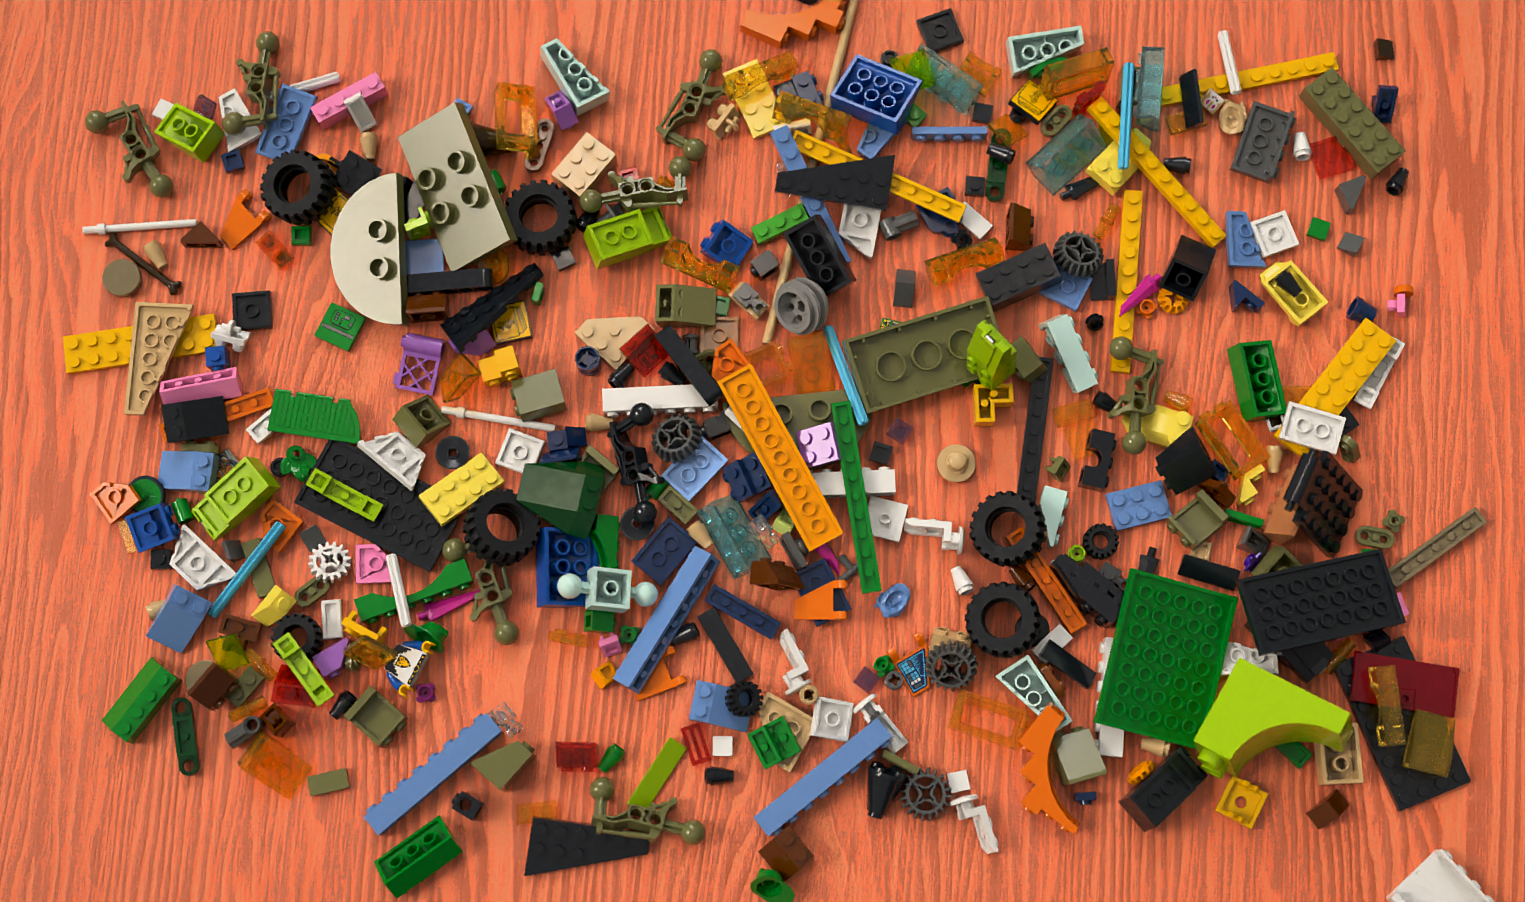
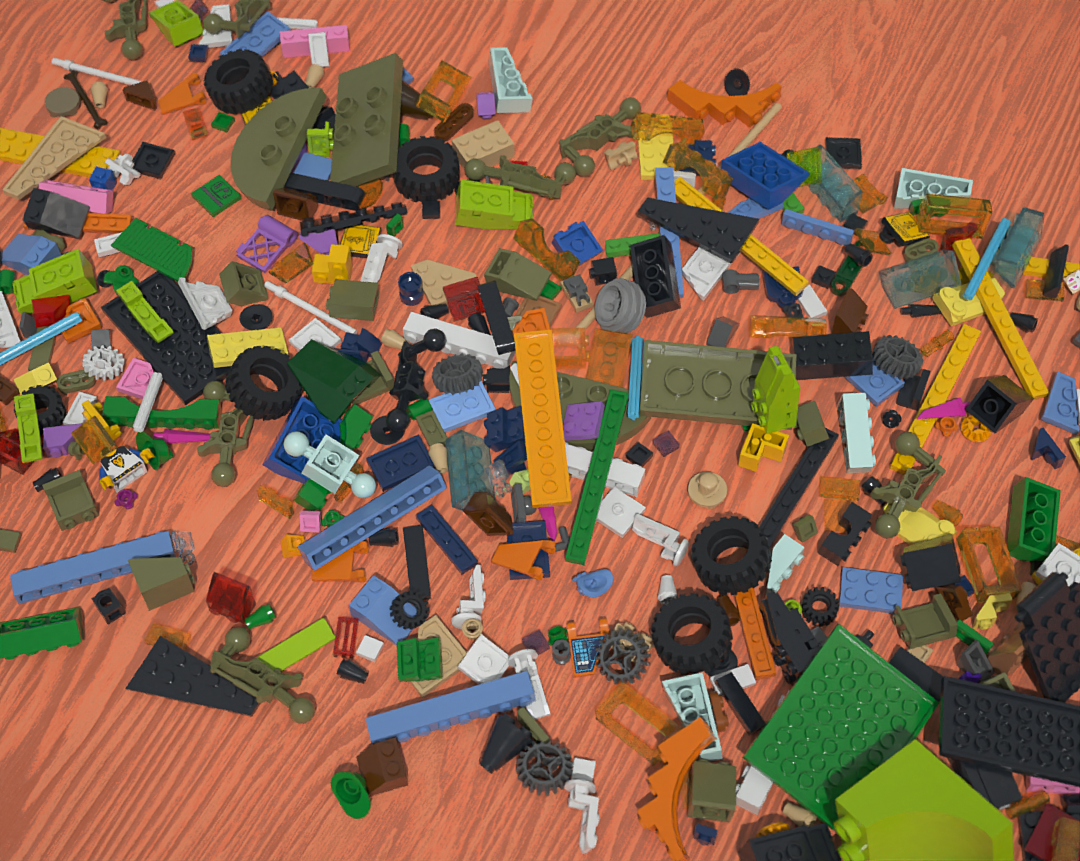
camera: 25 degrees right, 20 degrees down
(246, 528) = (49, 309): none -> red slope
(540, 340) = (376, 258): none -> white piece

